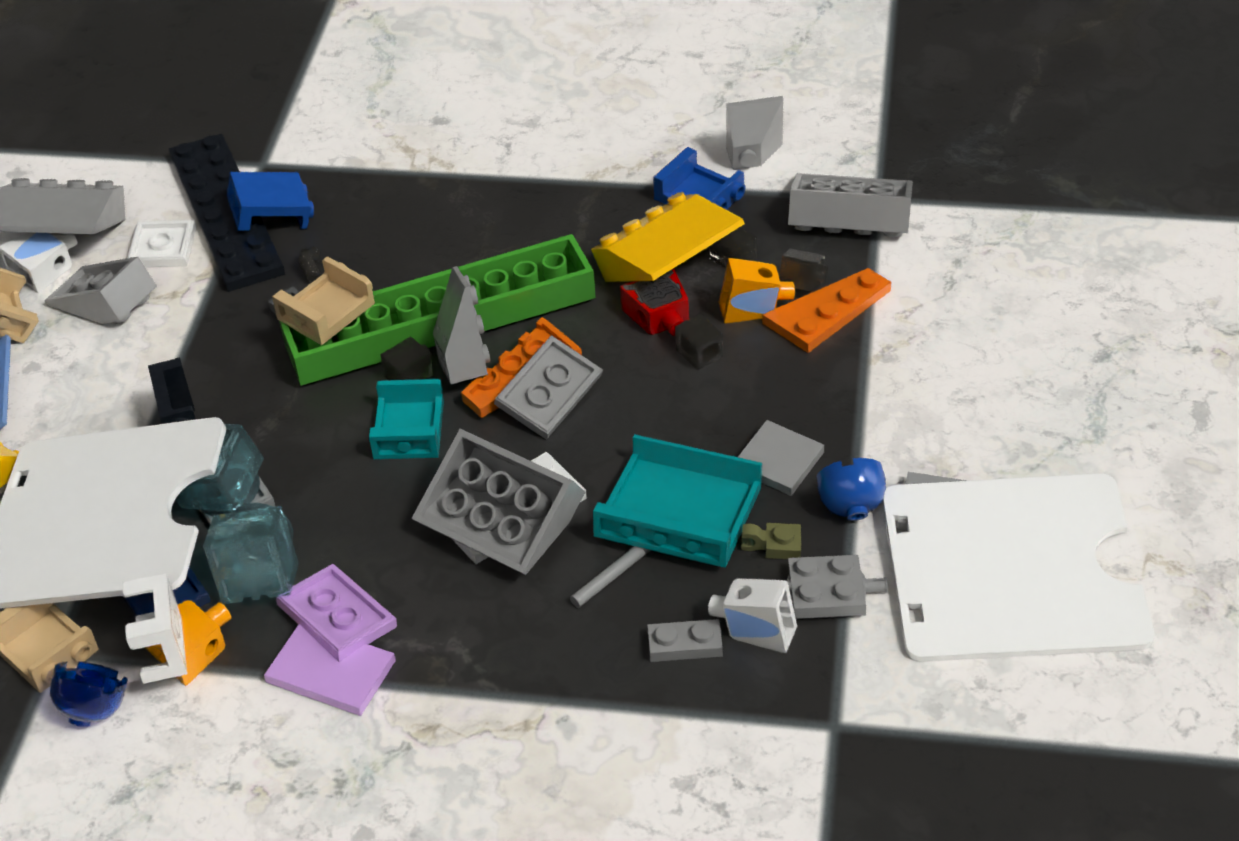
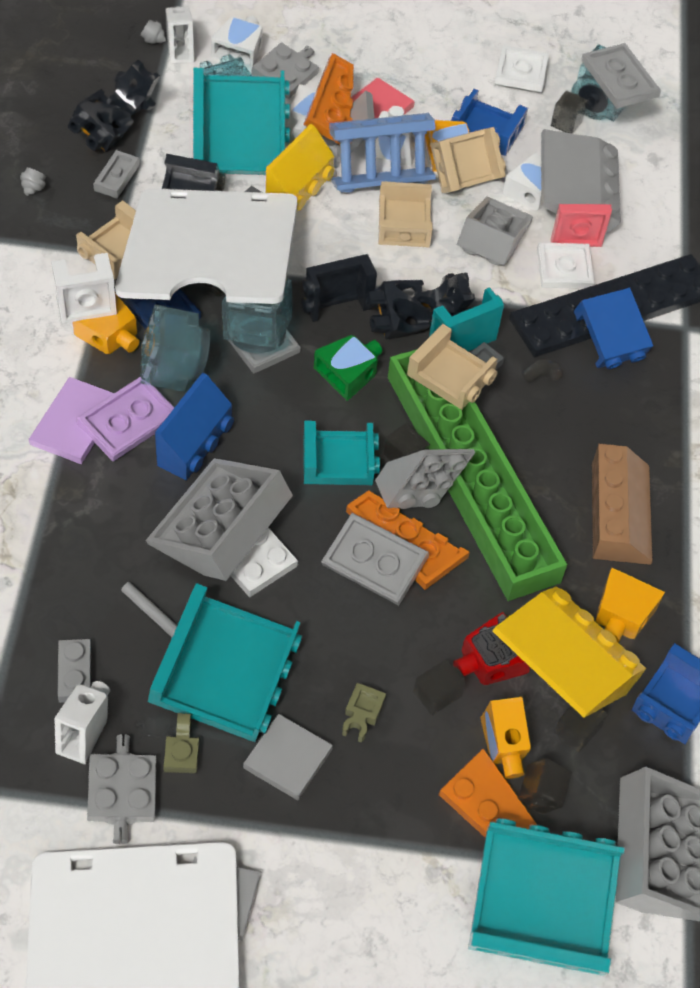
camera: 80 degrees right, 10 degrees up
(59, 370) = (405, 214): none -> tan panel
(86, 692) = (51, 251): clear blue cylinder -> none
(121, 215) = (581, 224): none -> coral tile
(208, 351) = (397, 306): none -> black hips
(247, 297) = (473, 325): none -> teal panel
(285, 412) = (347, 364): none -> green torso
(367, 541) = (193, 428): none -> blue slope
(487, 216) = (621, 506): none -> medium nougat slope
(602, 212) = (626, 604): none -> light orange torso
(725, 396) = (363, 708): none -> olive plate
(852, 489) = (226, 811): blue cylinder -> none
(912, 274) = (546, 897): none -> teal panel

